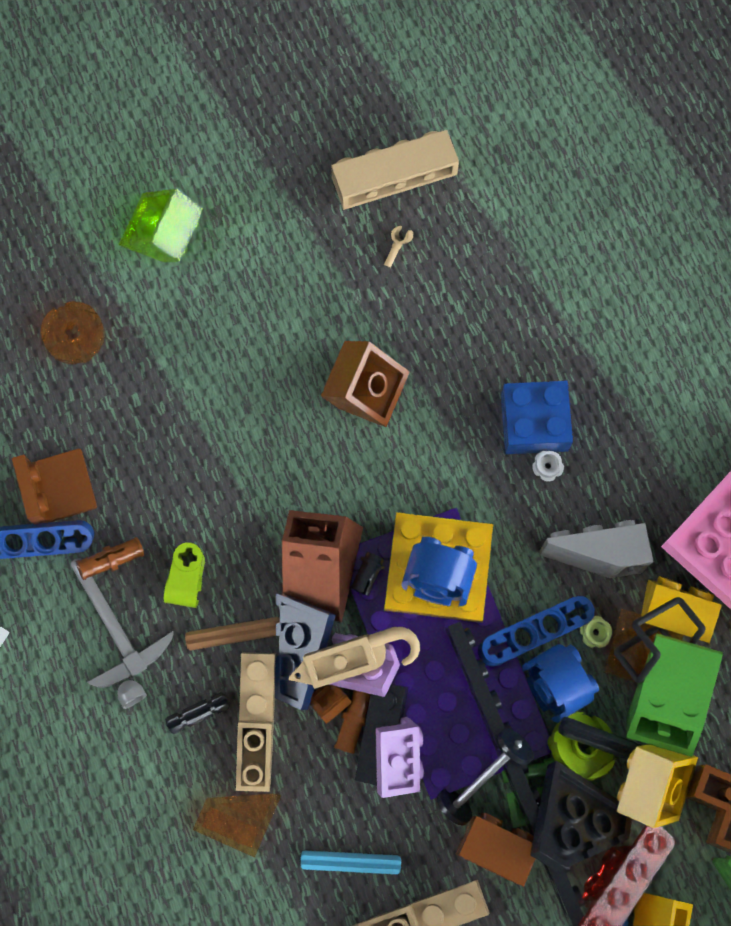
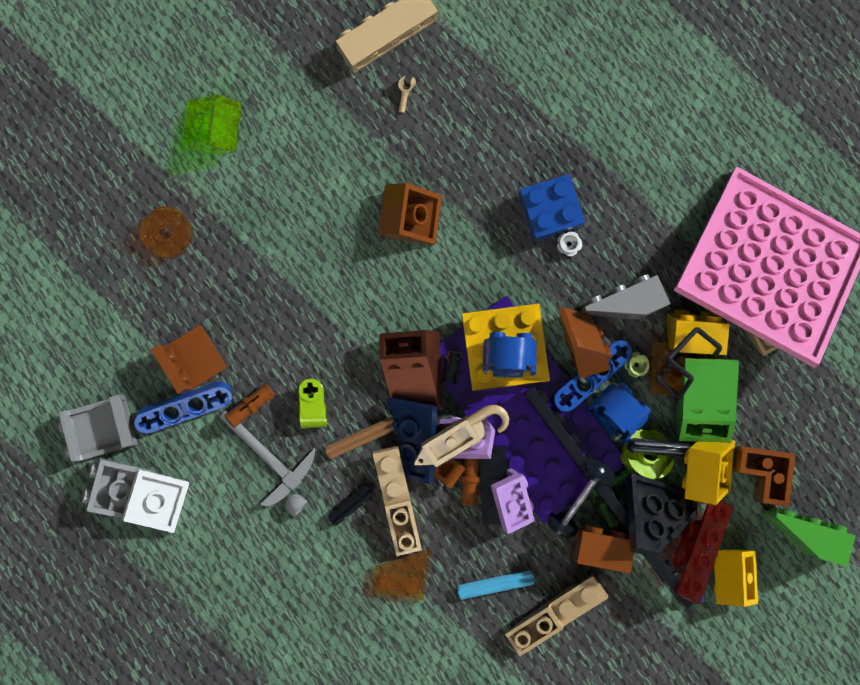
camera: 15 degrees left, 10 degrees up
(537, 585) = (585, 342): none -> dark orange slope

